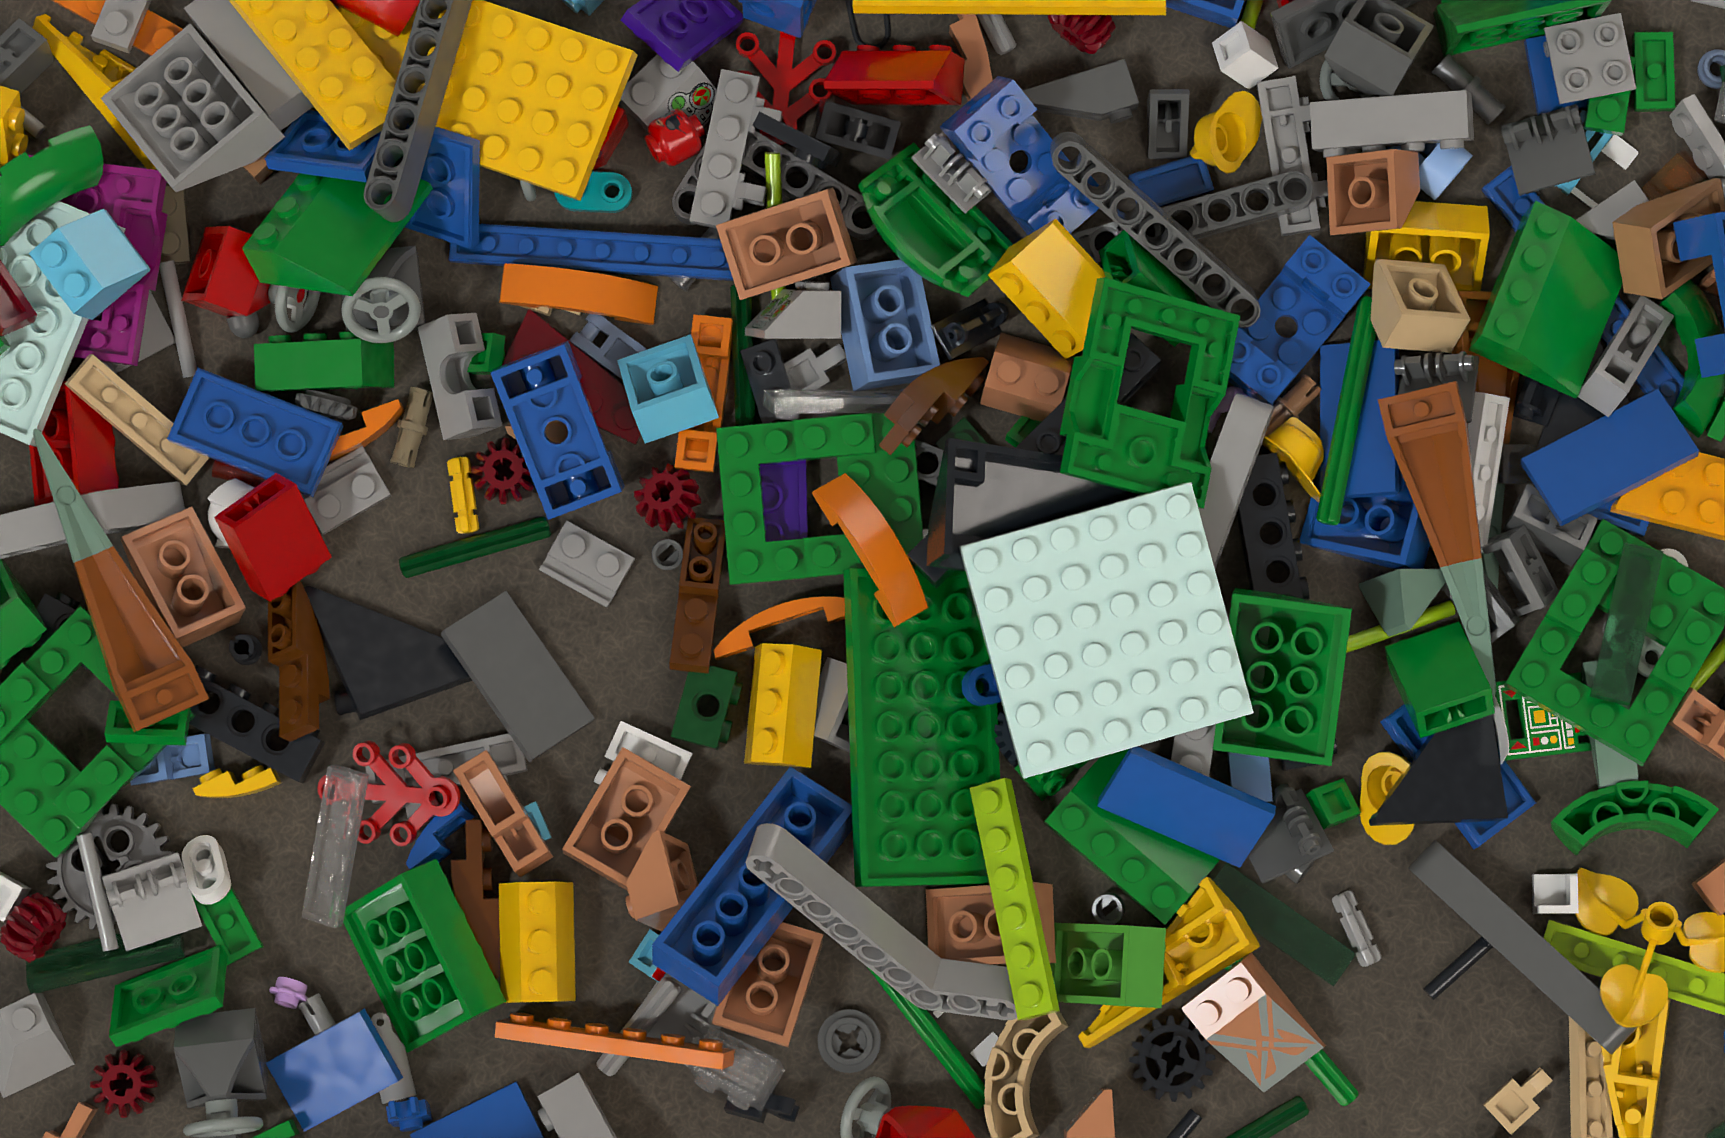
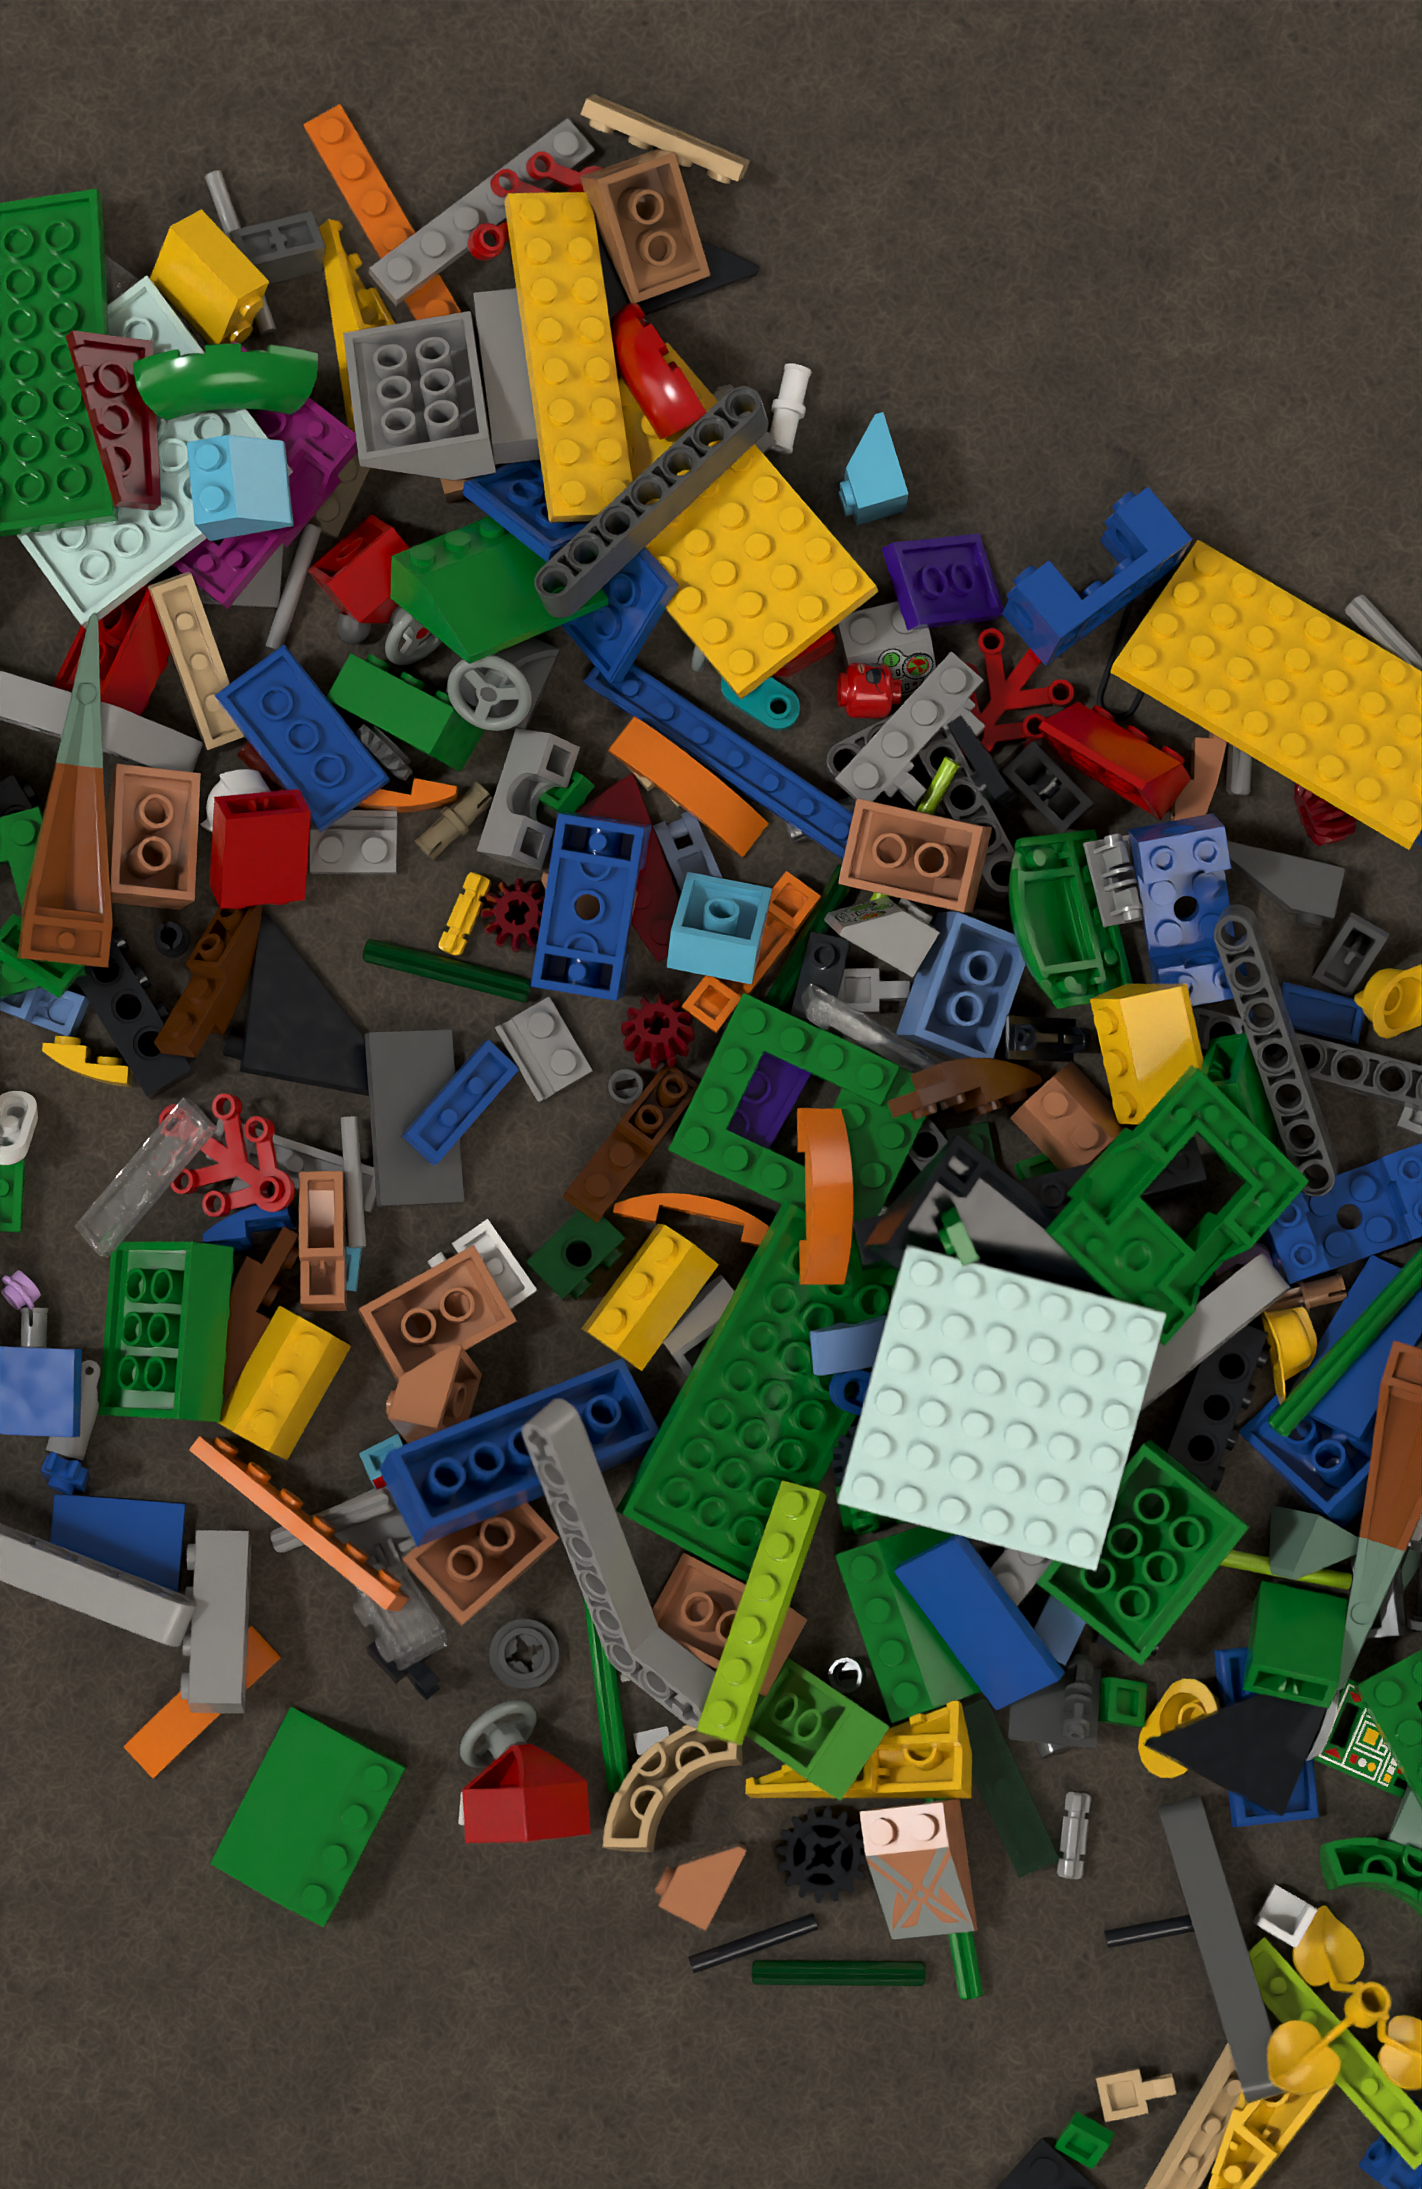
camera: 25 degrees right, 0 degrees up
(499, 754) = (353, 1182): none -> light grey bar
(546, 643) = (460, 1102): none -> blue plate
(958, 654) = (846, 1346): none -> medium blue slope
(994, 518) = (956, 1238): none -> green plate

